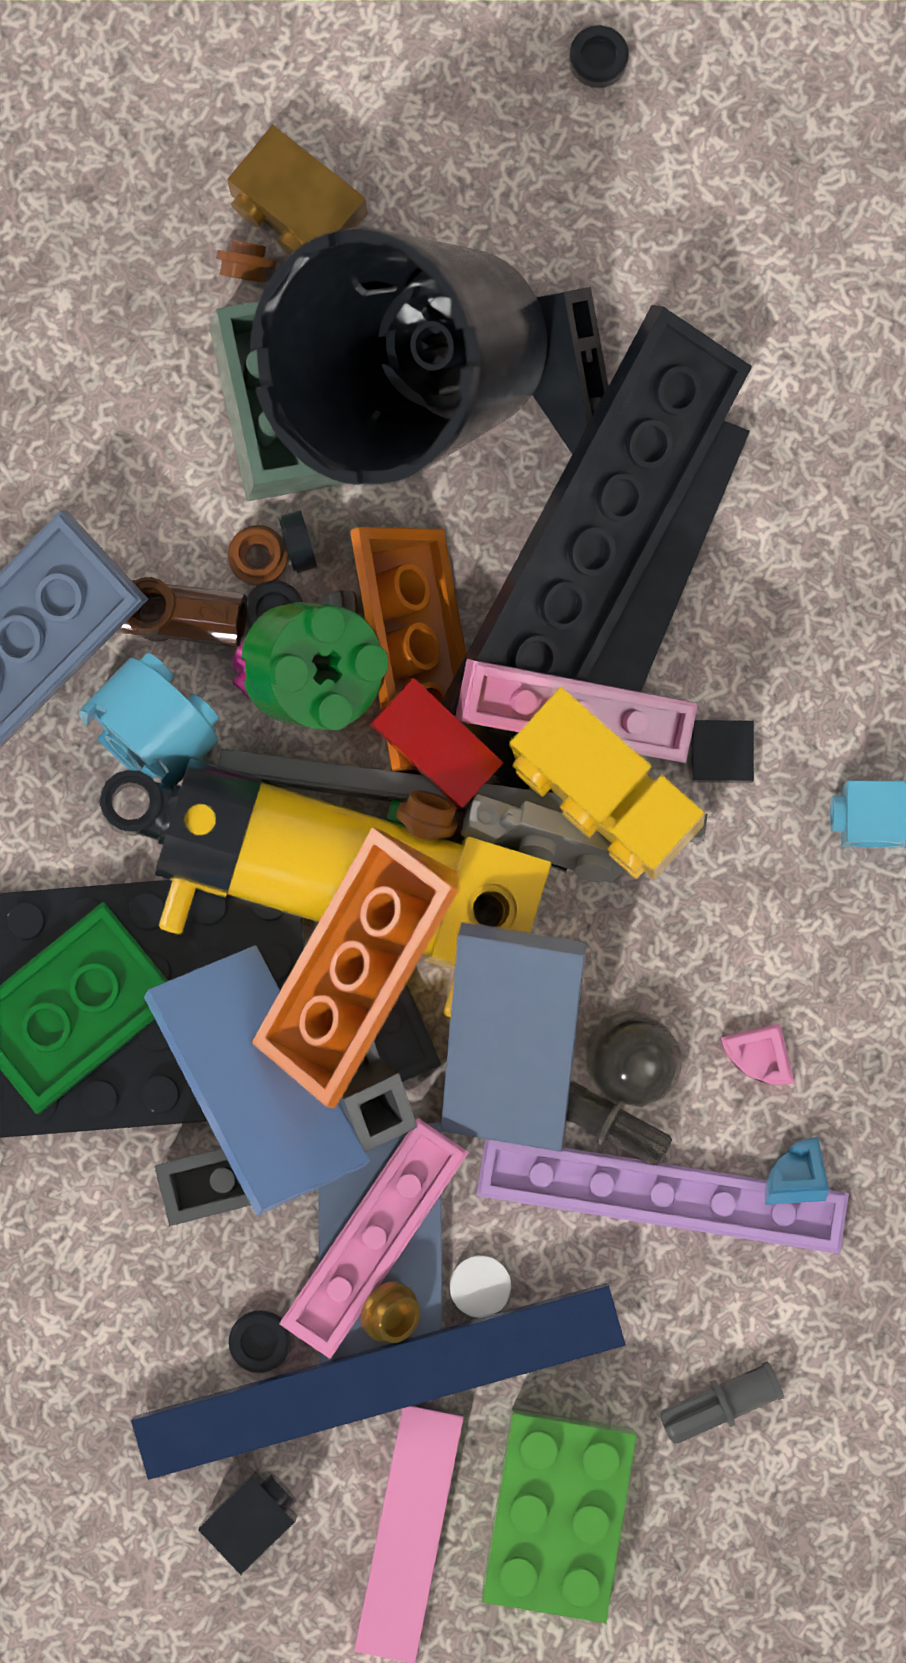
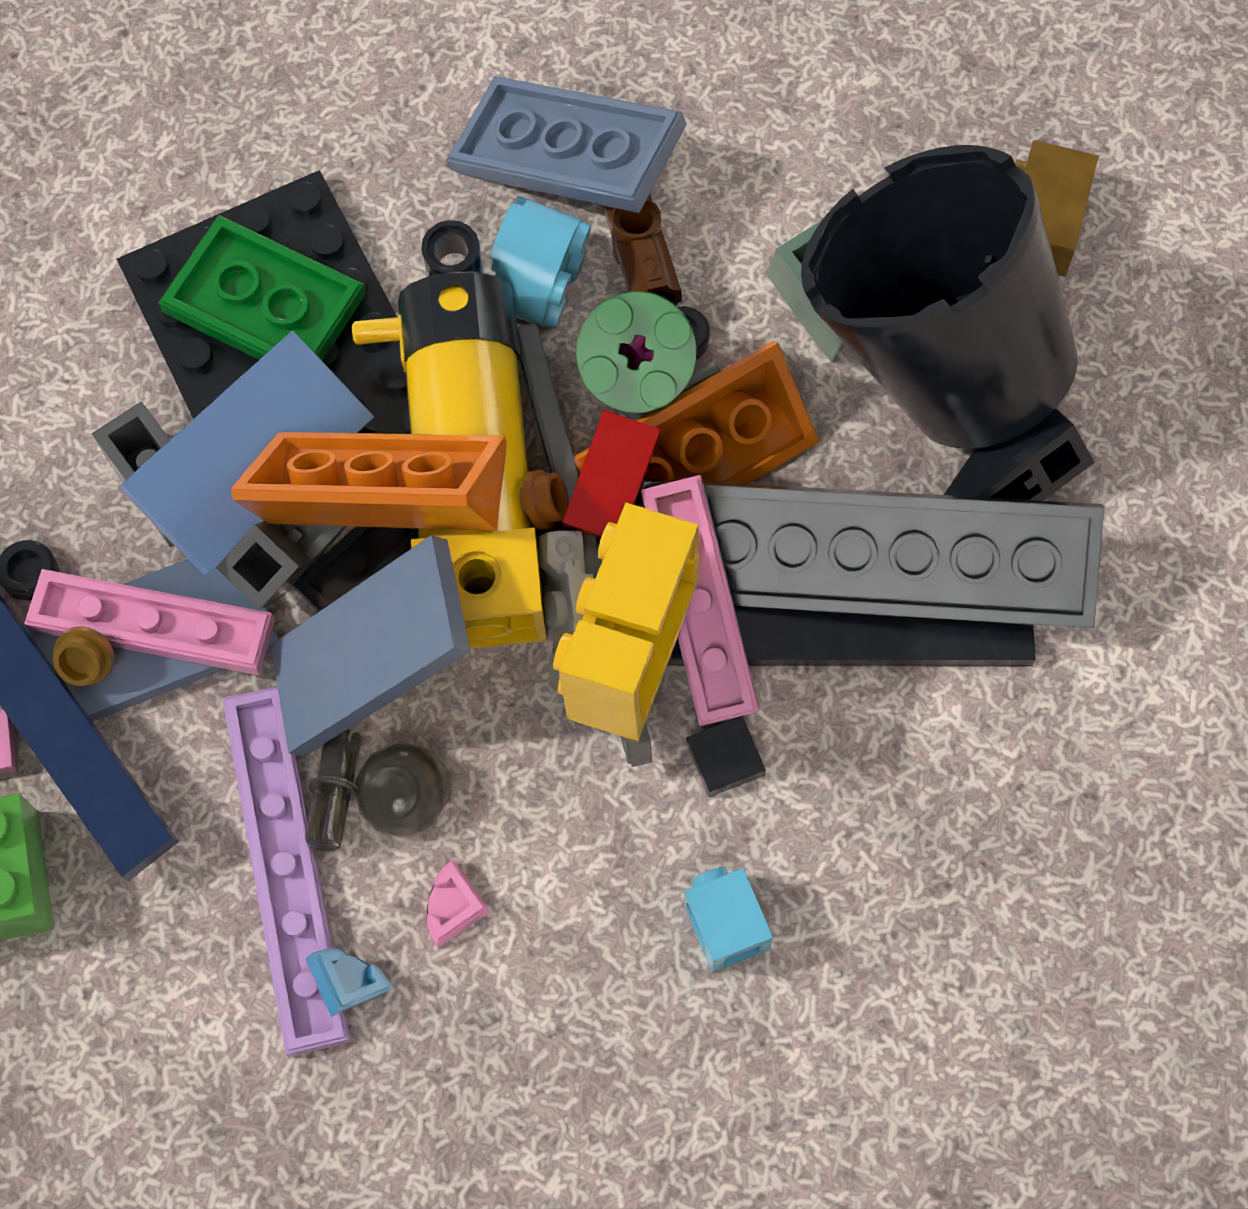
camera: 70 degrees right, 15 degrees down
(257, 536) = (724, 286): dark orange plate -> none
(297, 541) = (749, 323): black tile -> none
(480, 1286) = (140, 736): white tile -> none
(721, 1403) = (101, 998): dark grey axle -> none

